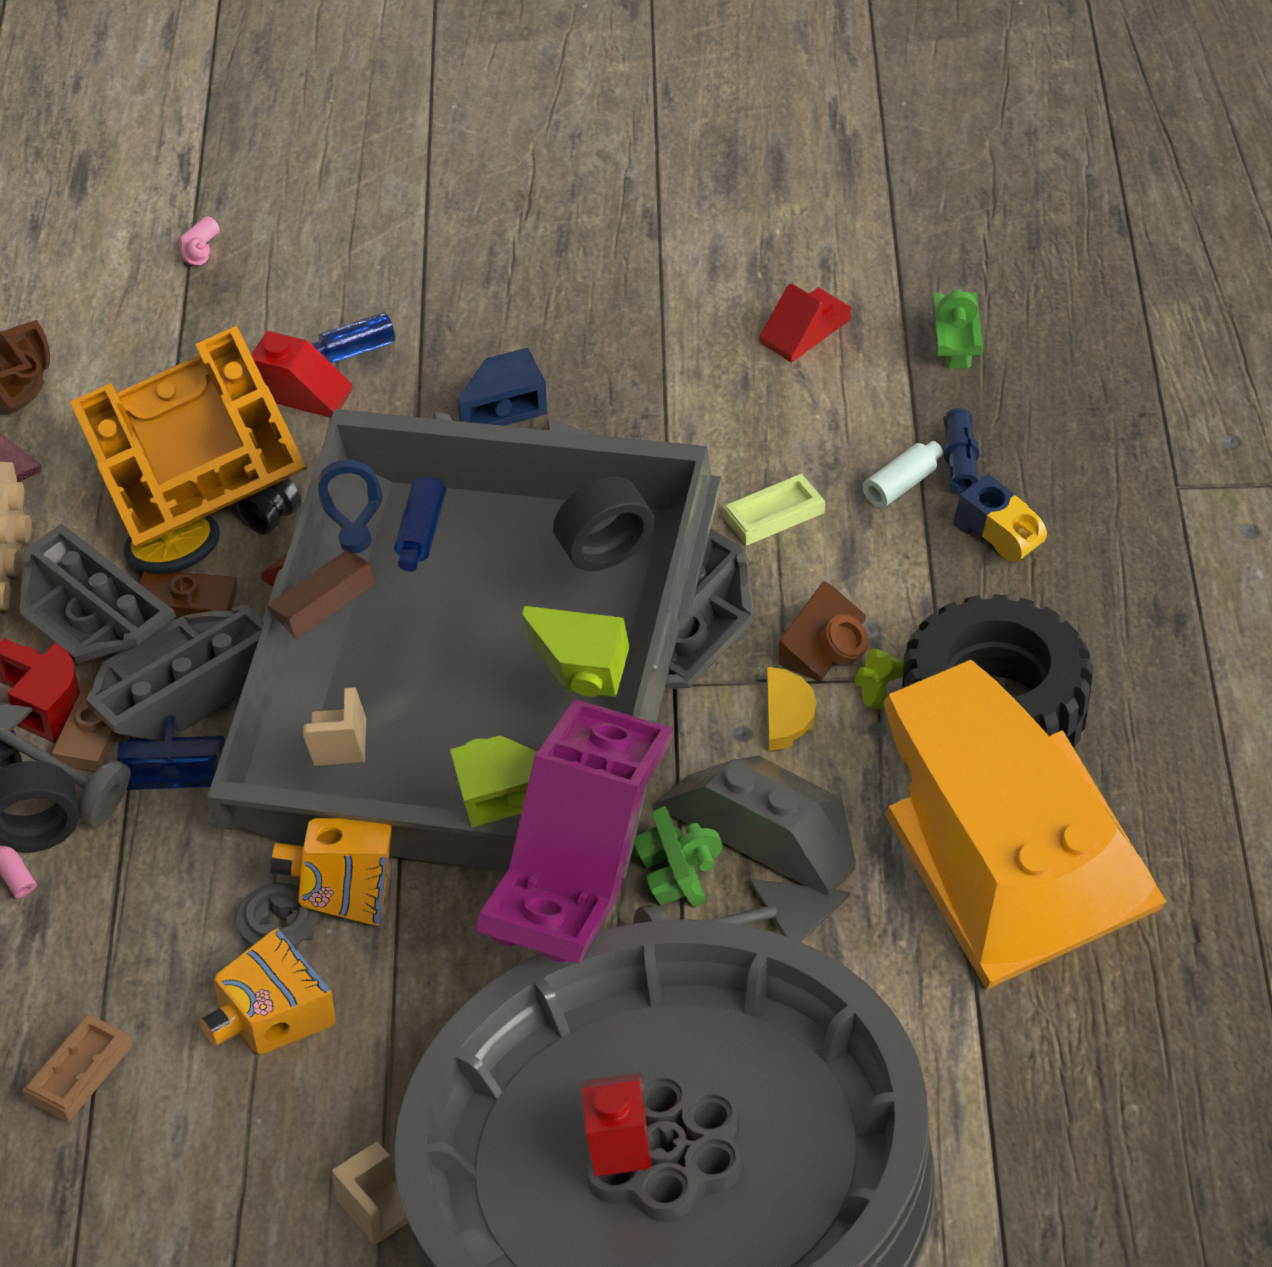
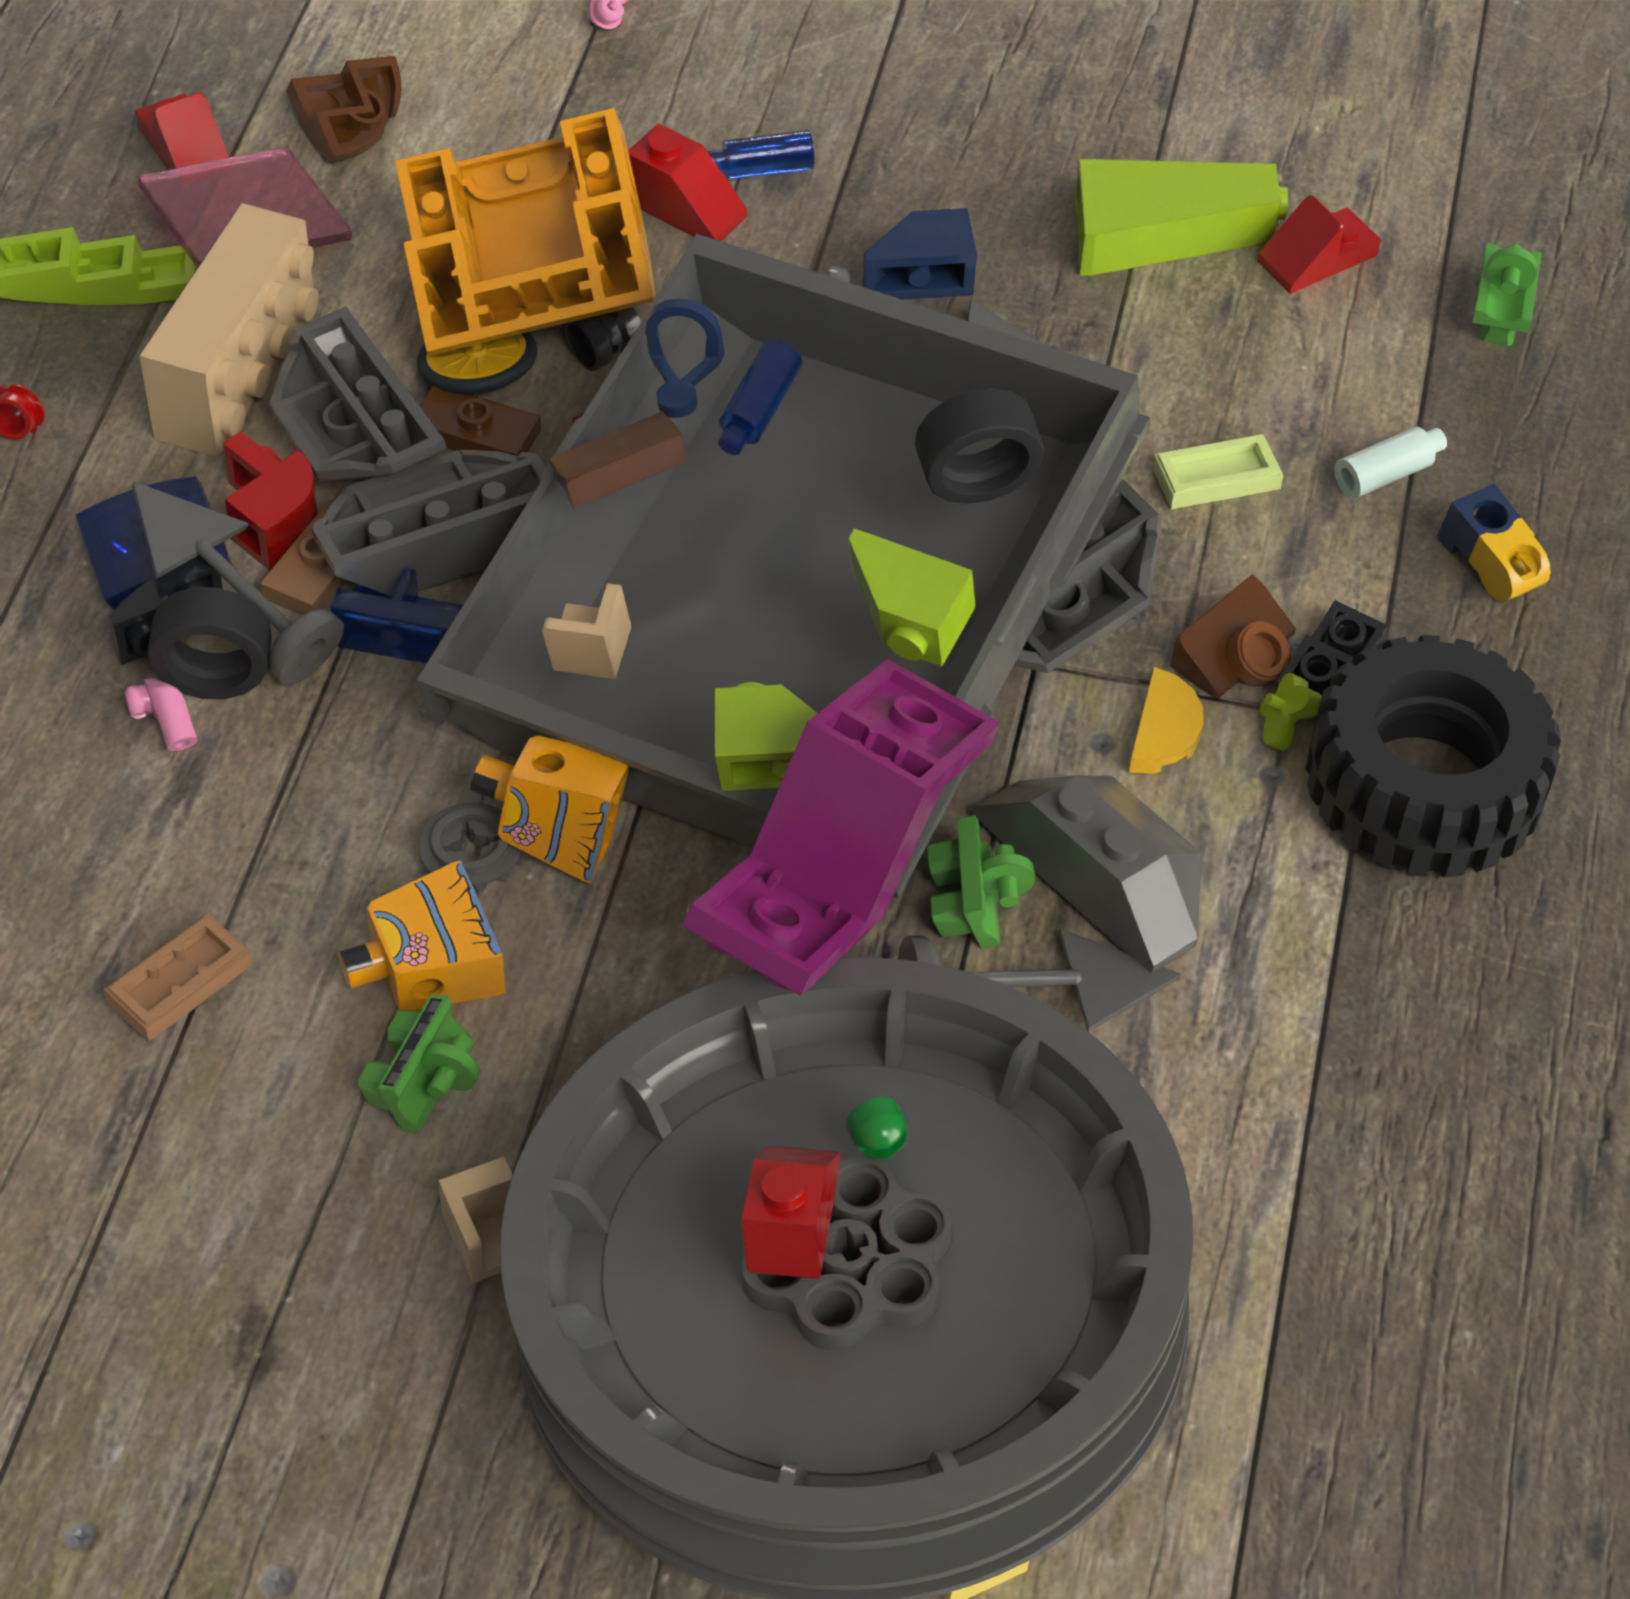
camera: 10 degrees right, 5 degrees up
(295, 1088) = (428, 1063): none -> bright green hips
(662, 1049) = (878, 1128): none -> green hinge
(684, 317) = (1171, 210): none -> lime slope
(898, 621) = (1334, 643): none -> black slope
(960, 449) = (1470, 446): dark blue pin -> none
(1008, 827) = (1399, 940): light orange wedge -> none

